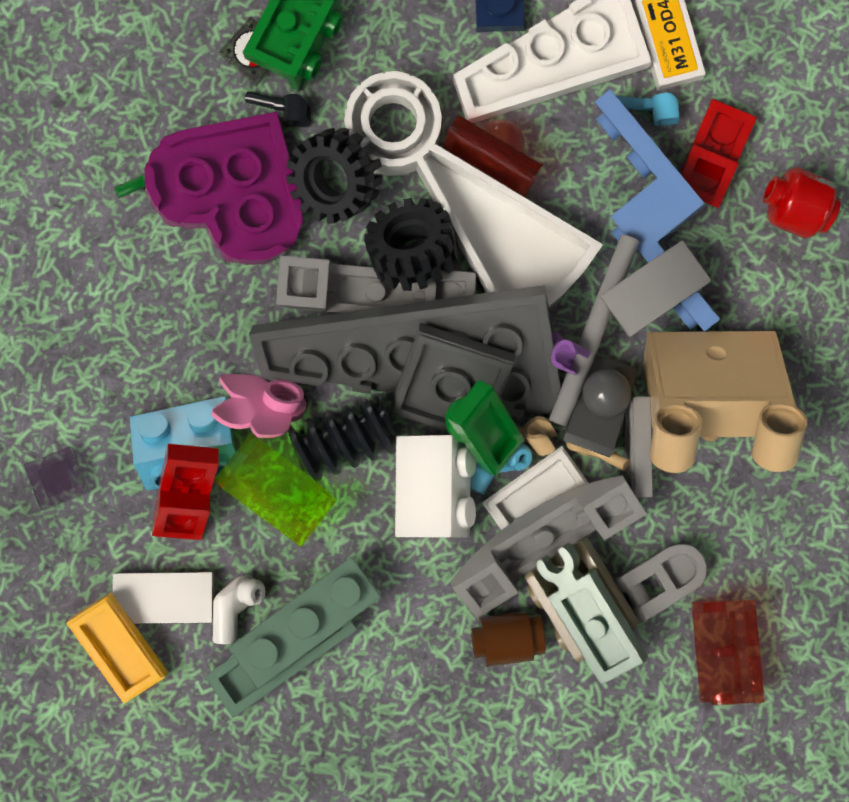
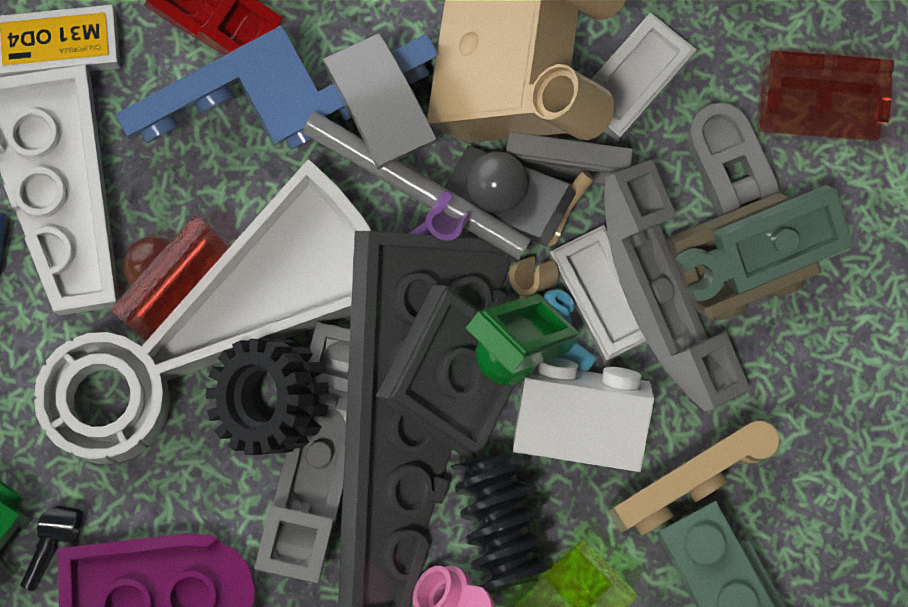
camera: 85 degrees left, 5 degrees down
(314, 188) = (175, 510): black tyre -> none
(400, 583) = (697, 476): none -> tan plate
(508, 638) = (780, 353): reddish brown brick -> none
(663, 105) = (143, 61): medium azure hand -> none
(721, 497) = (642, 71): none -> white tile

